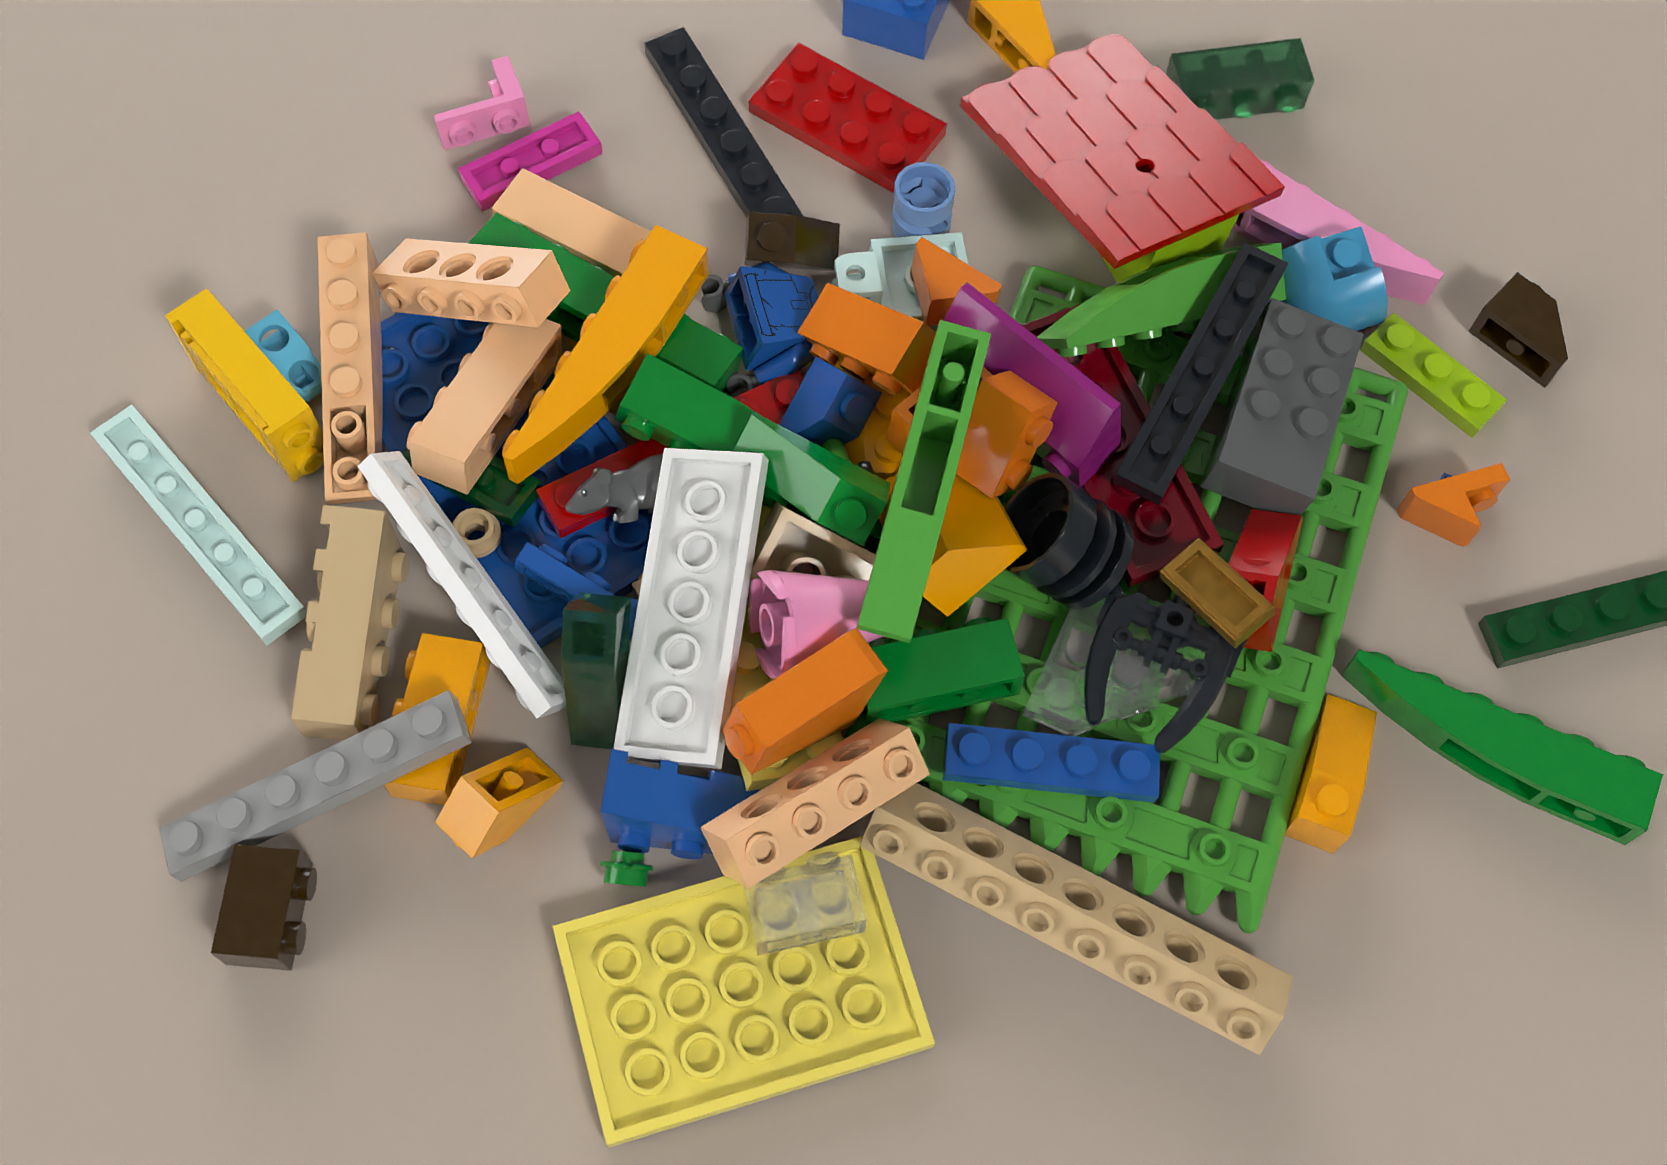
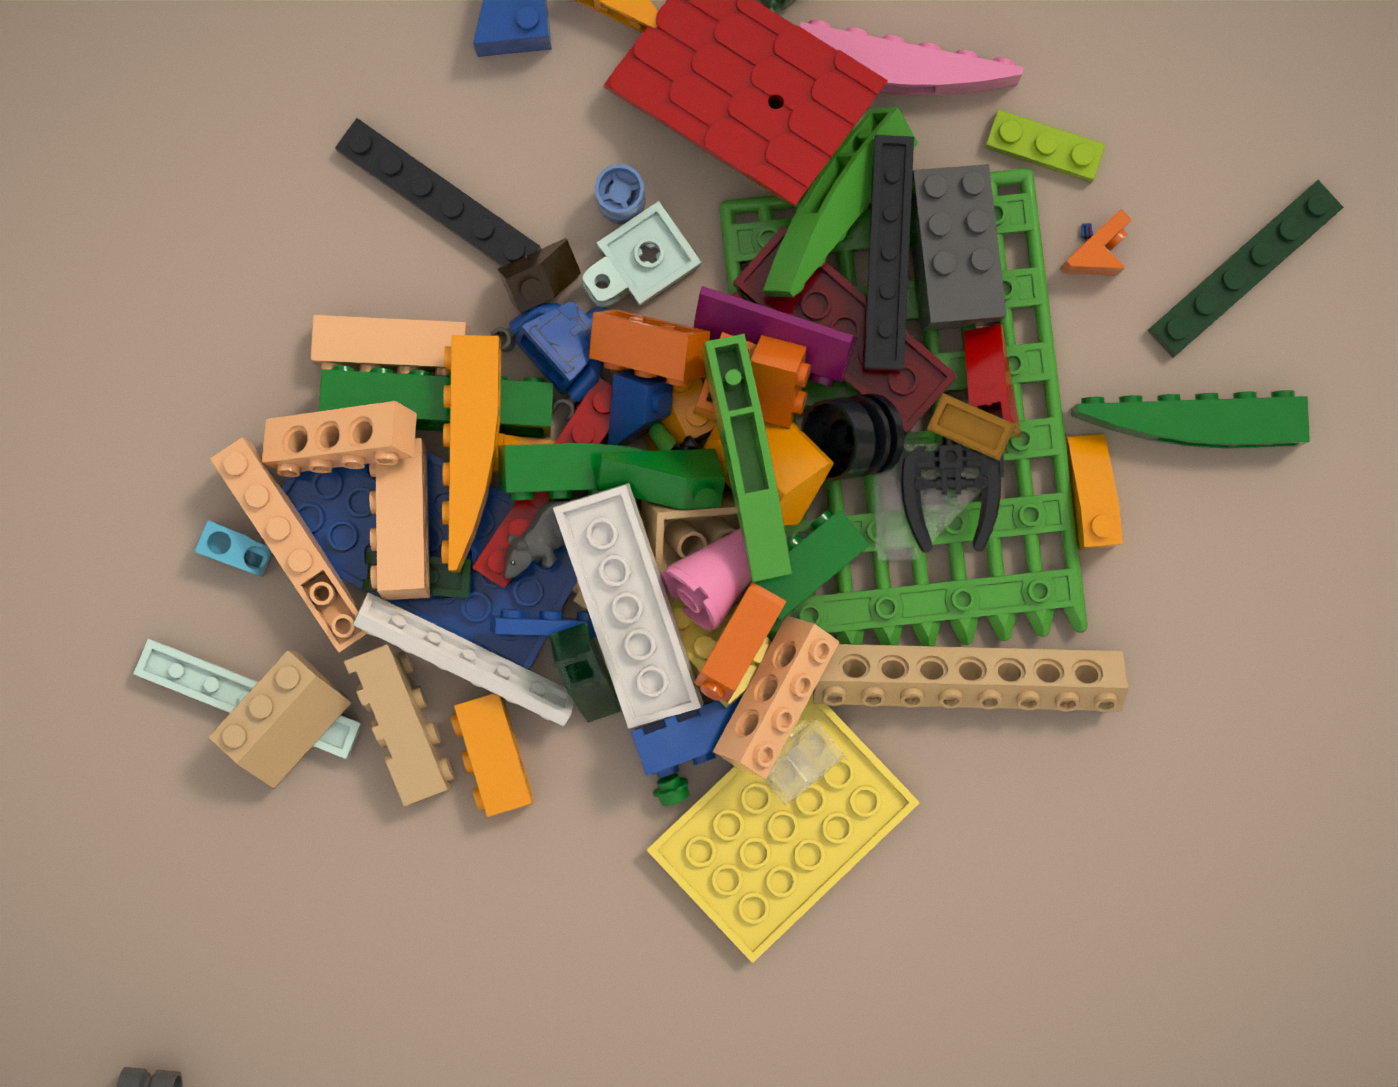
camera: 20 degrees left, 20 degrees up
(213, 548) = (280, 719): none -> tan slope
(249, 384) = (226, 588): yellow door -> none
(264, 907) = (458, 929): dark brown brick -> none
(315, 785) = (446, 839): light grey plate -> none
(479, 520) = (455, 606): tan plate -> none
(490, 117) = (265, 271): bright pink bracket -> none
(496, 801) = (565, 786): light orange slope -> none
(541, 153) = (309, 296): dark pink plate -> none
(846, 116) = (521, 135): red plate -> none
(940, 277) = (675, 261): orange slope -> none
(1051, 762) = (910, 587): blue plate -> none
(1336, 280) = (945, 114): dark azure brick -> none
(1524, 329) = (1096, 77): dark brown slope -> none

